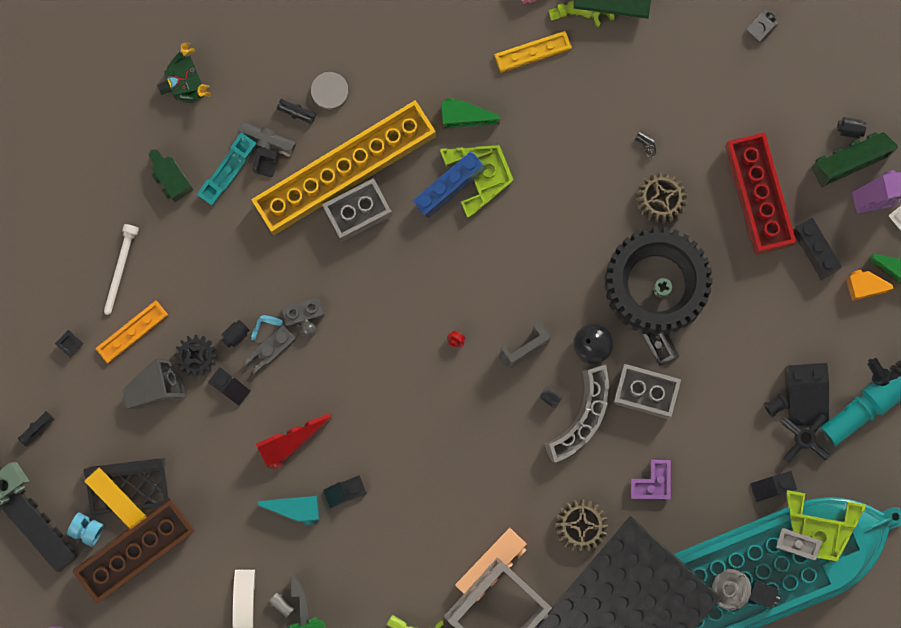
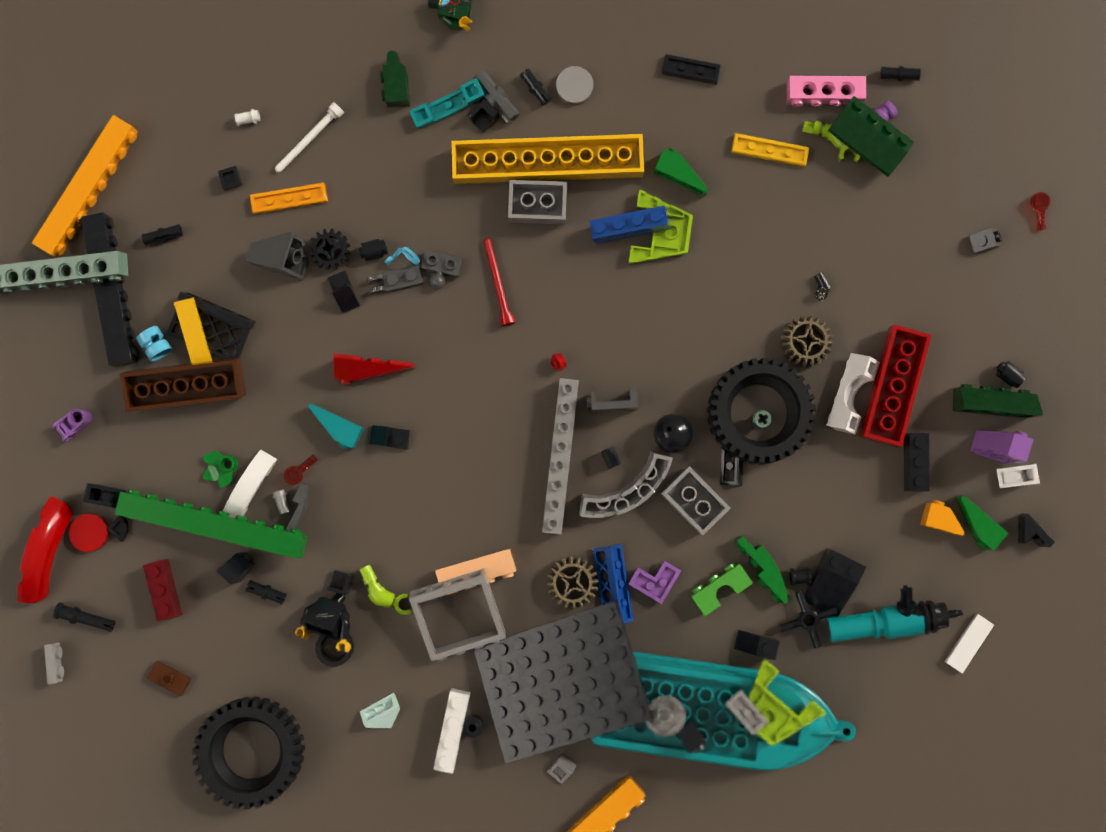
camera: 35 degrees right, 5 degrees up
(52, 282) = (247, 117): none -> white pin
(206, 609) = (217, 468): none -> green plate
(278, 575) = (293, 475): none -> clear red plate
(388, 327) = (506, 317): none -> red piece
(423, 20) = (691, 69): none -> black tile
(506, 420) = (560, 456): none -> light grey brick
(620, 501) = (617, 582): none -> blue fence
(719, 439) = (705, 595): none -> bright green arch
(721, 200) = (858, 371): none -> white arch
(749, 419) = (769, 575): none -> green slope

